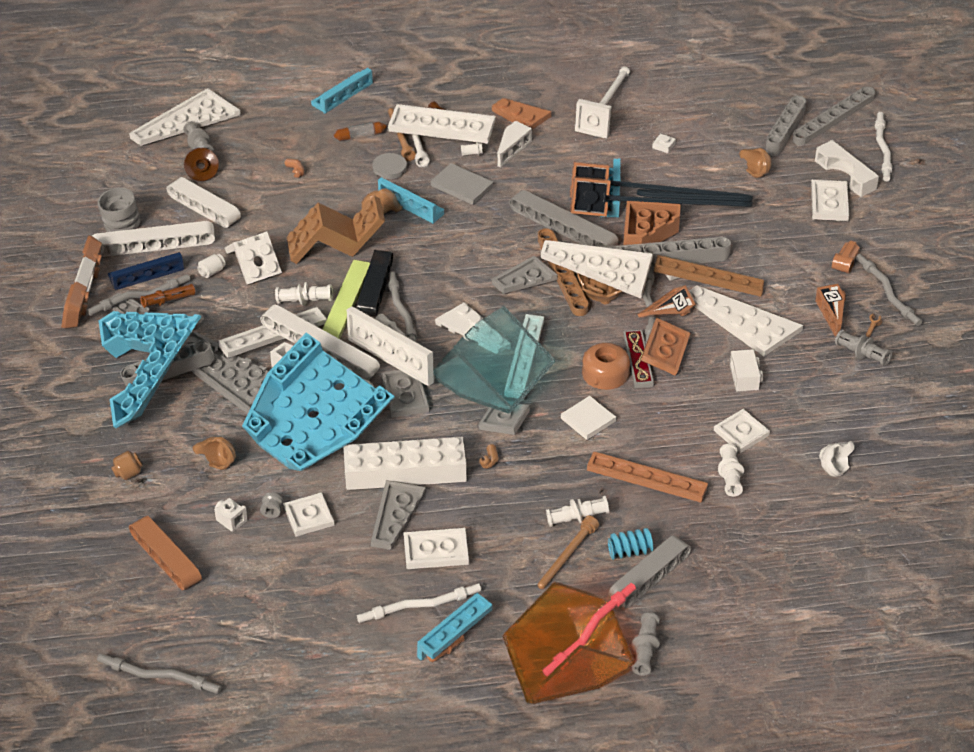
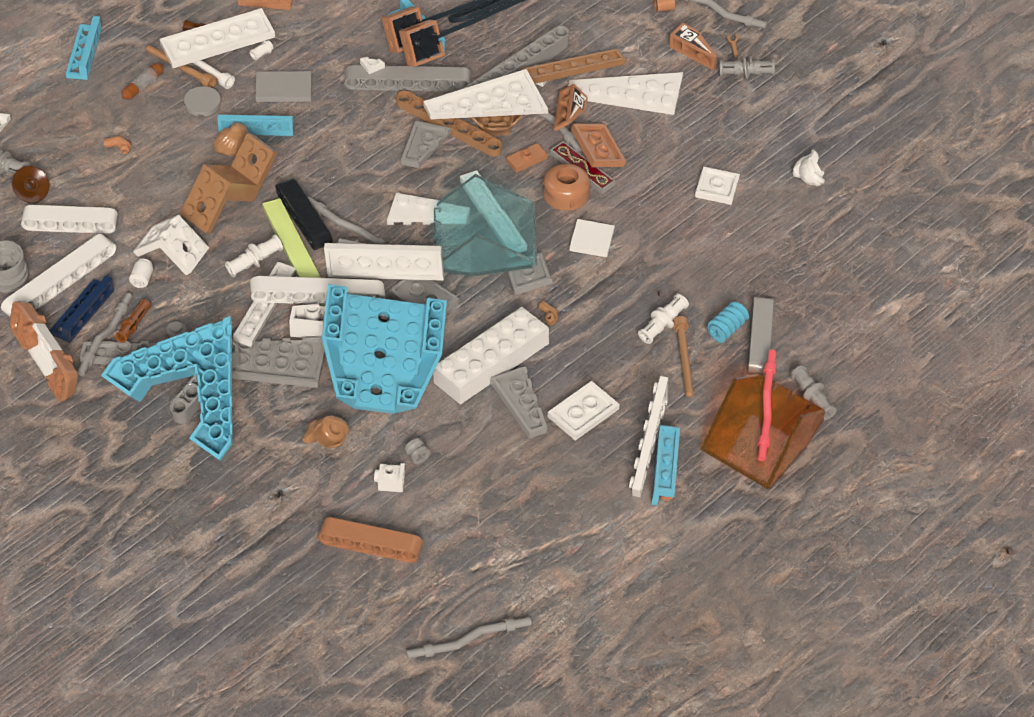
camera: 40 degrees left, 5 degrees up
(126, 465) = (259, 487): medium nougat head -> none
(308, 514) = (452, 441): white tile -> none
(379, 612) = (591, 485): white bar -> none
(484, 579) = (651, 428): none -> white wing
(513, 141) = (291, 24): white slope -> none
(538, 196) = (371, 65): none -> white tile
(598, 328) = (526, 158): none -> nougat plate
(647, 476) = (685, 261): nougat plate -> none
(650, 222) = (482, 44): nougat brick -> none
(731, 470) = (744, 220): white piece -> none
(745, 370) = (676, 133): white brick -> none

